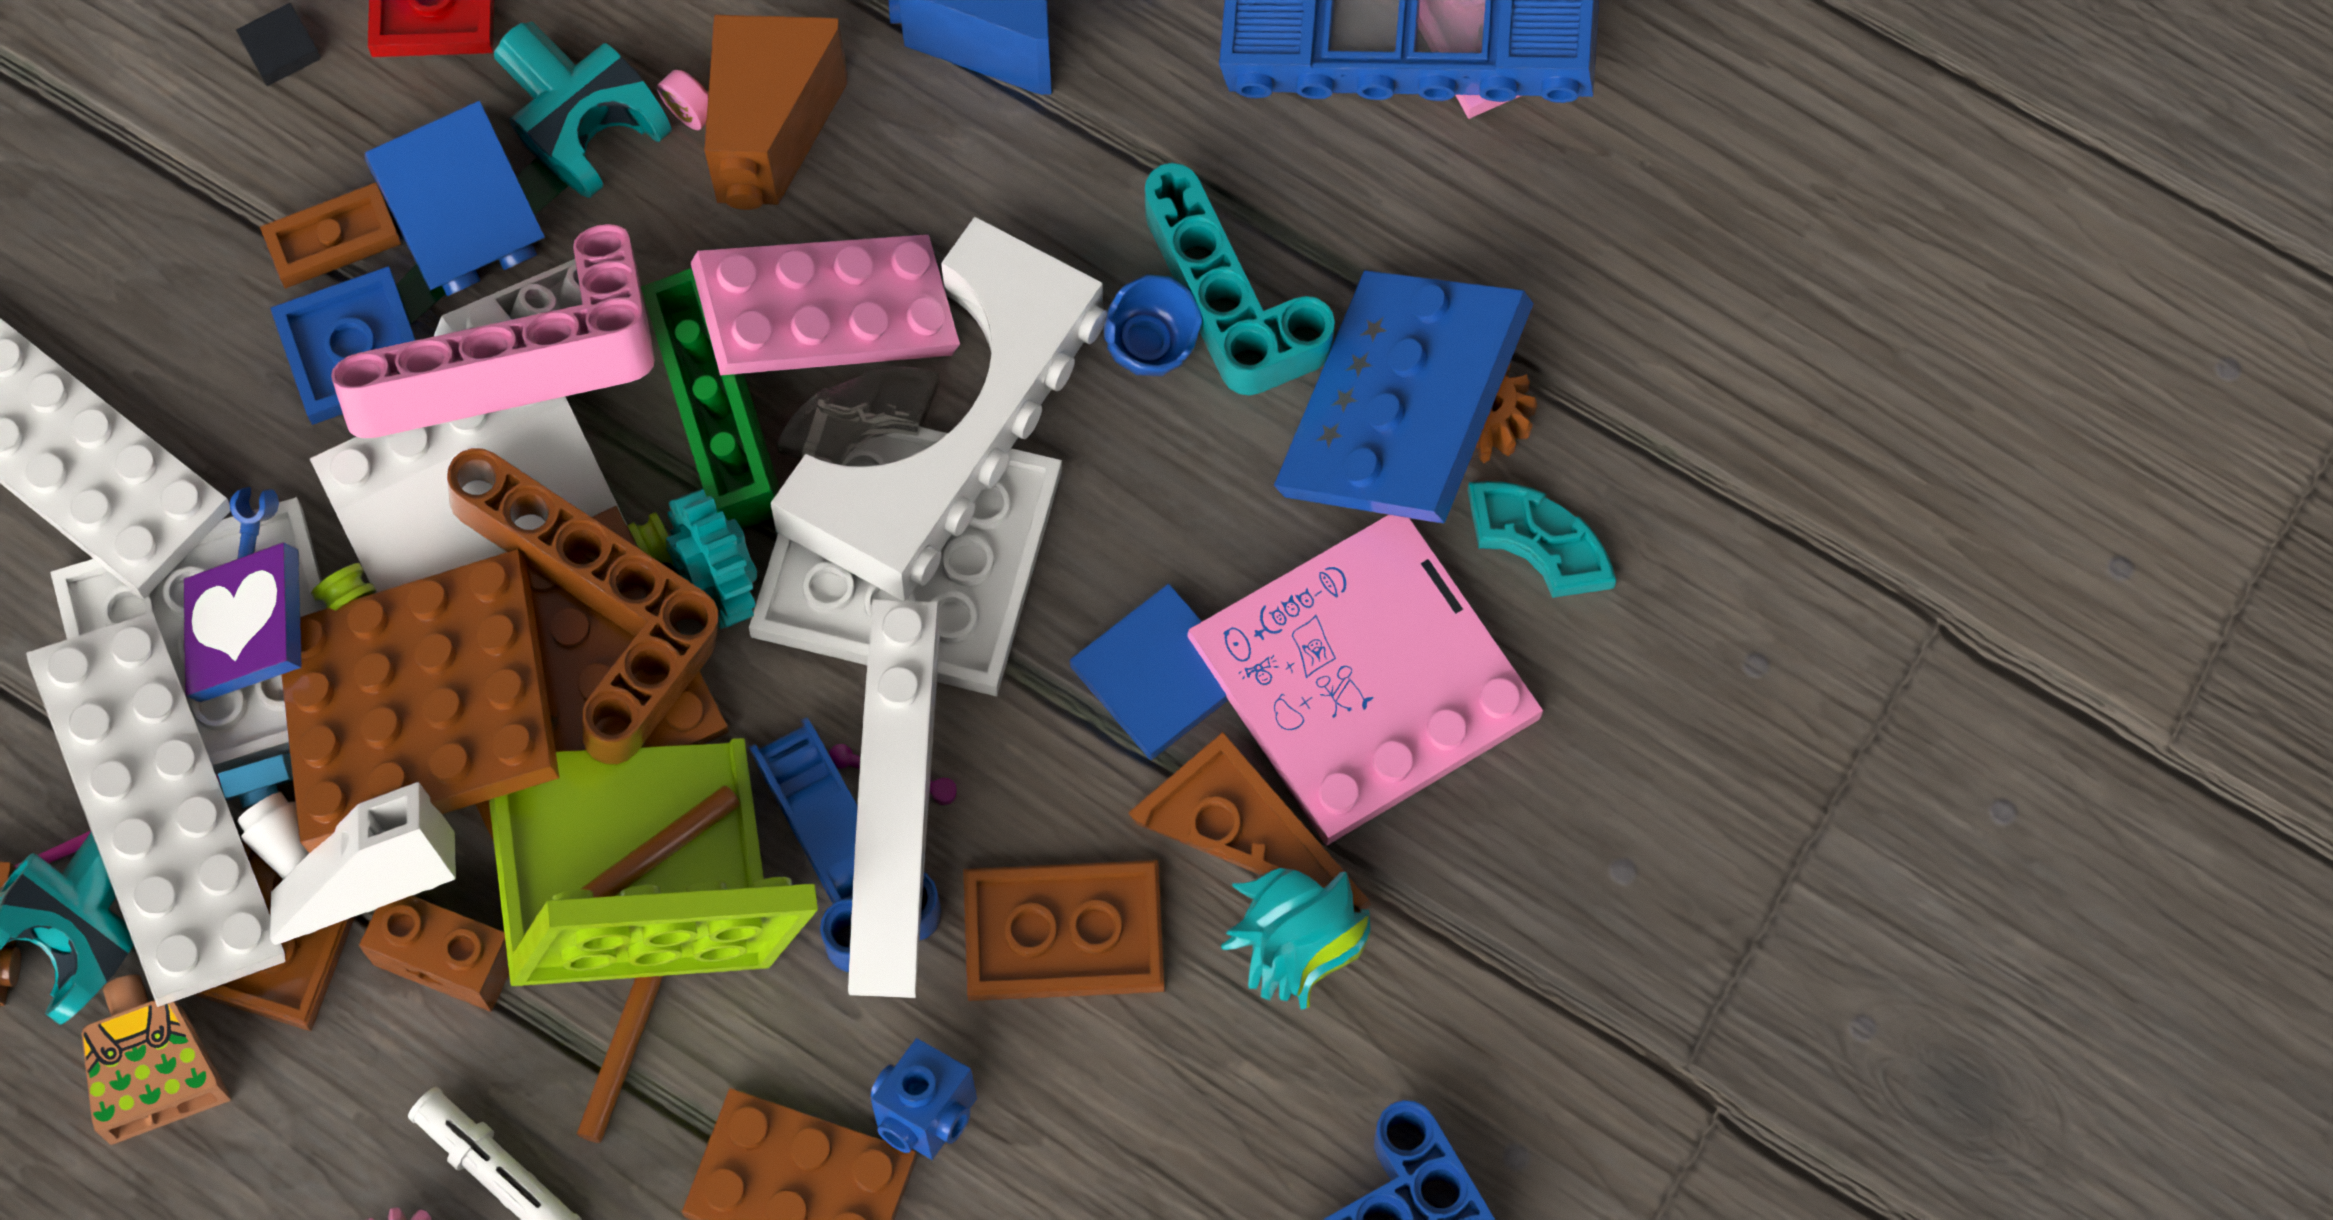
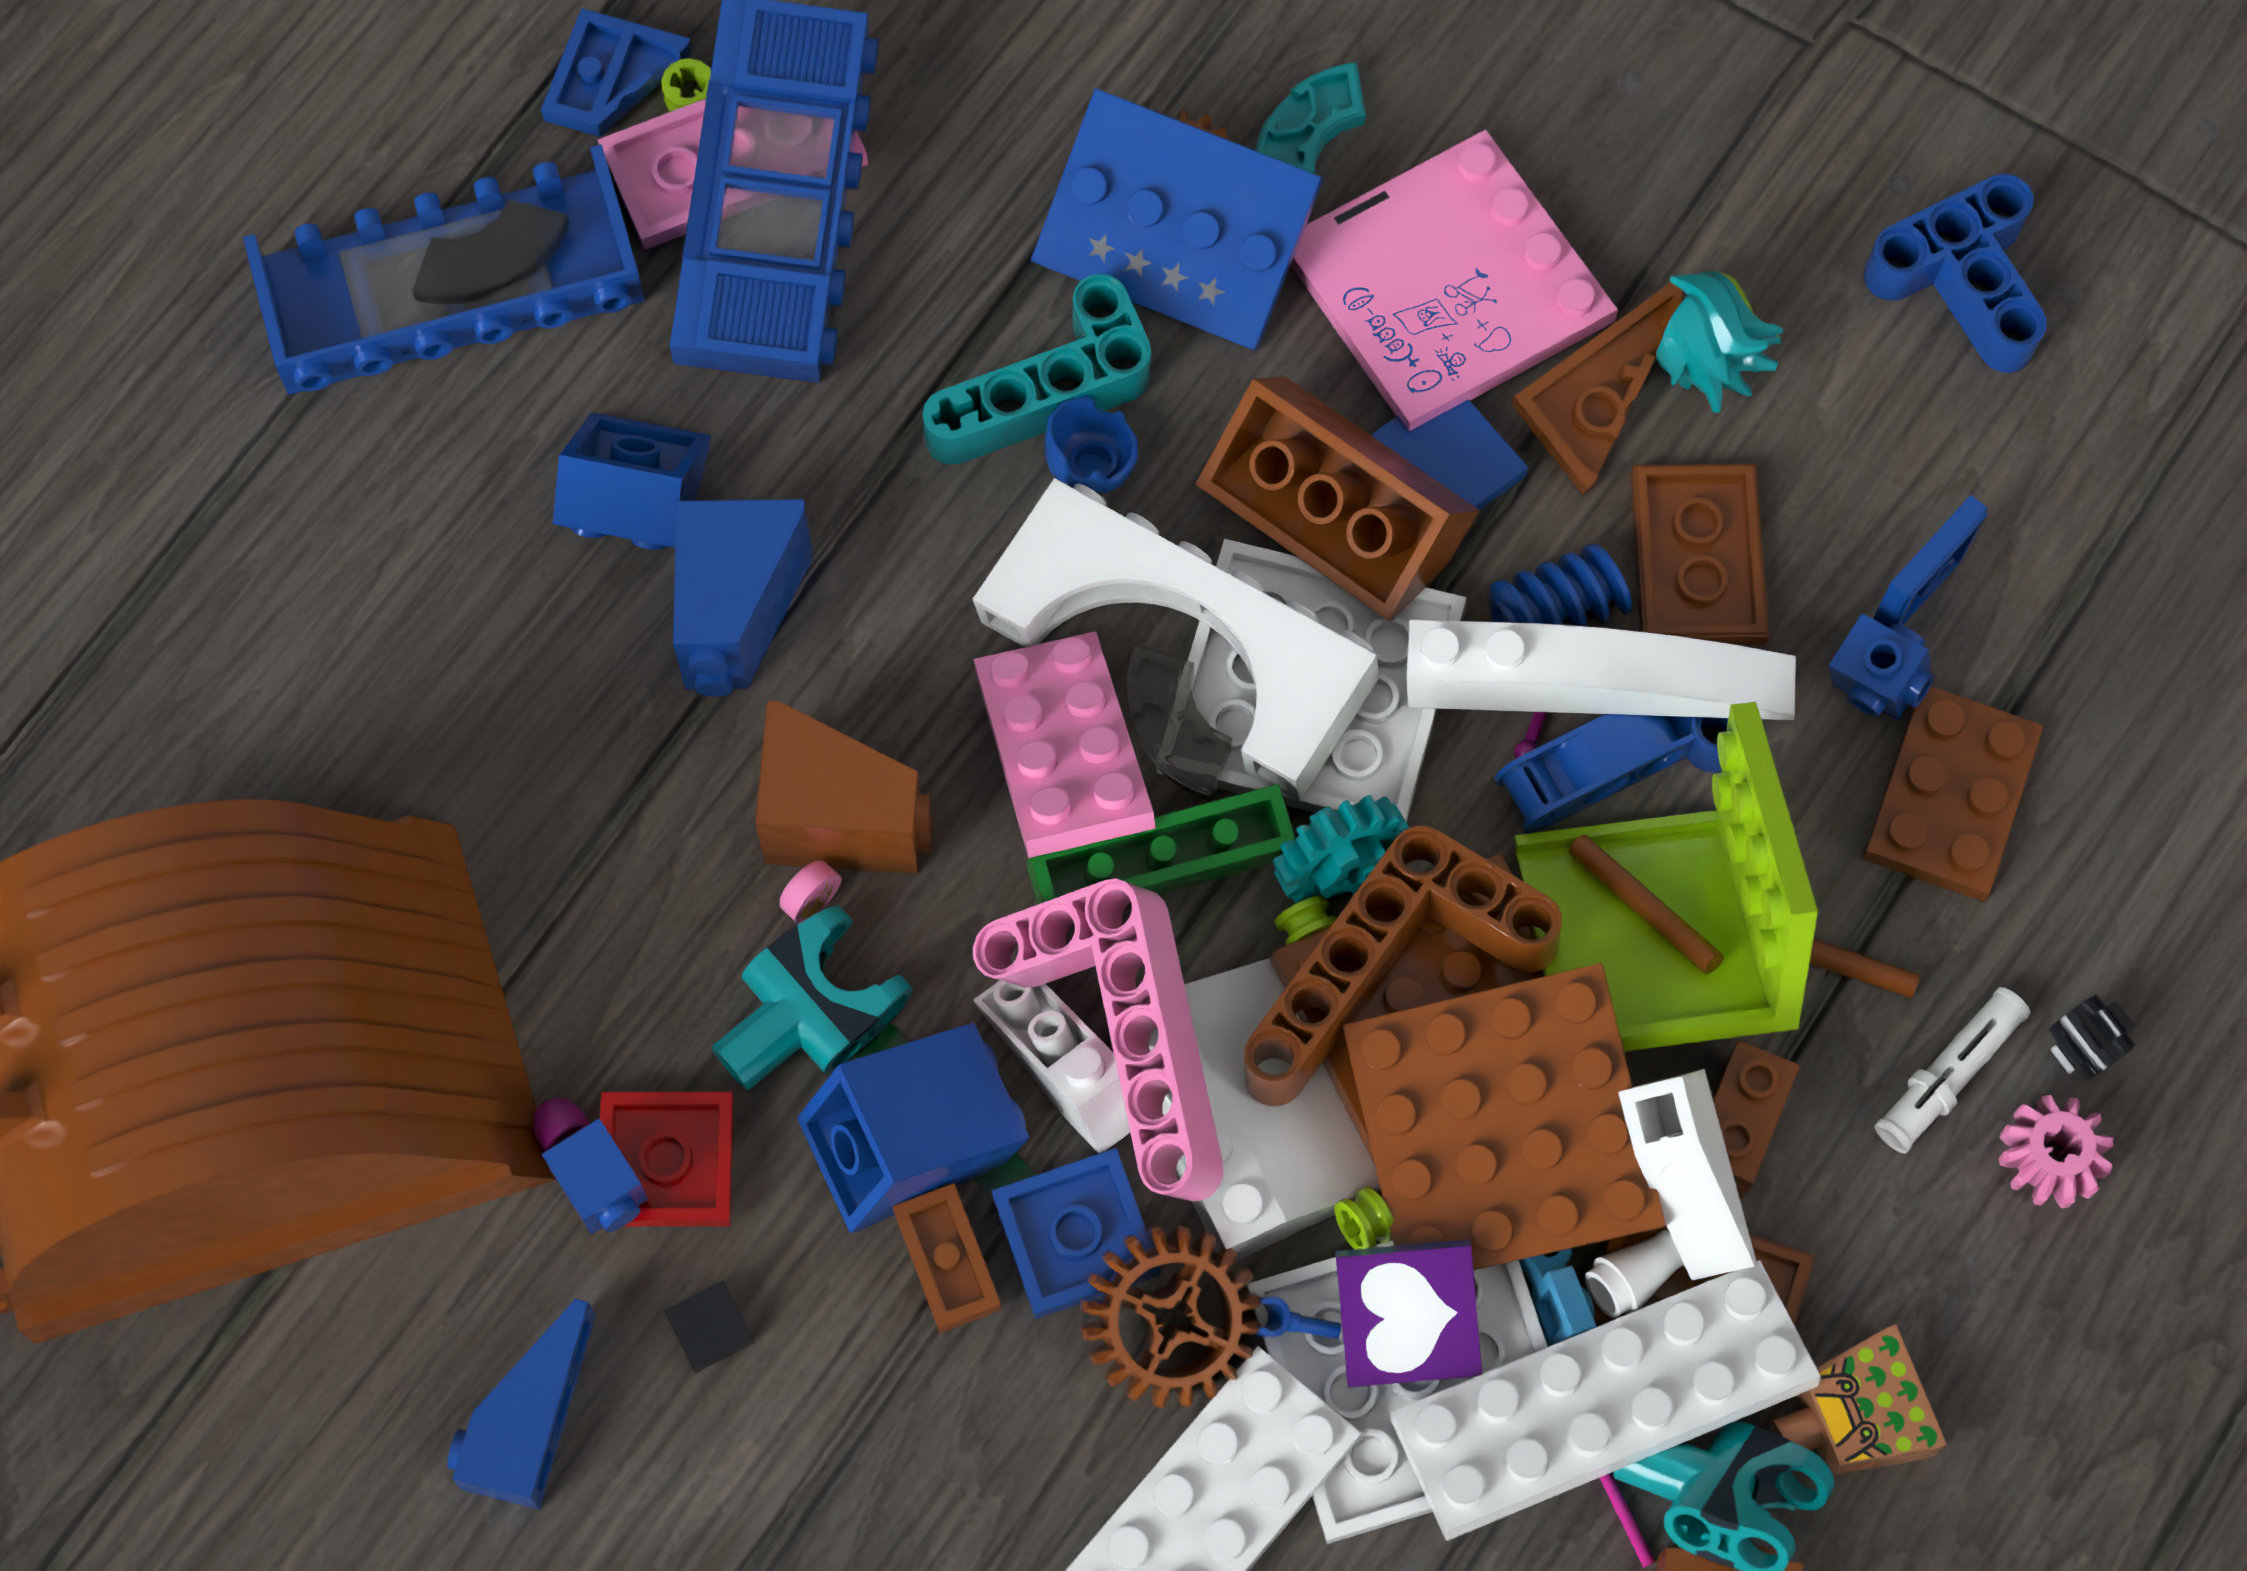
camera: 90 degrees left, 0 degrees up
(264, 381) = (1159, 1345): none -> dark orange gear
(994, 778) = (1562, 591): none -> blue piece
(1027, 1144) = (1931, 564): none -> blue tile
(1103, 556) = (1335, 495): none -> dark orange slope

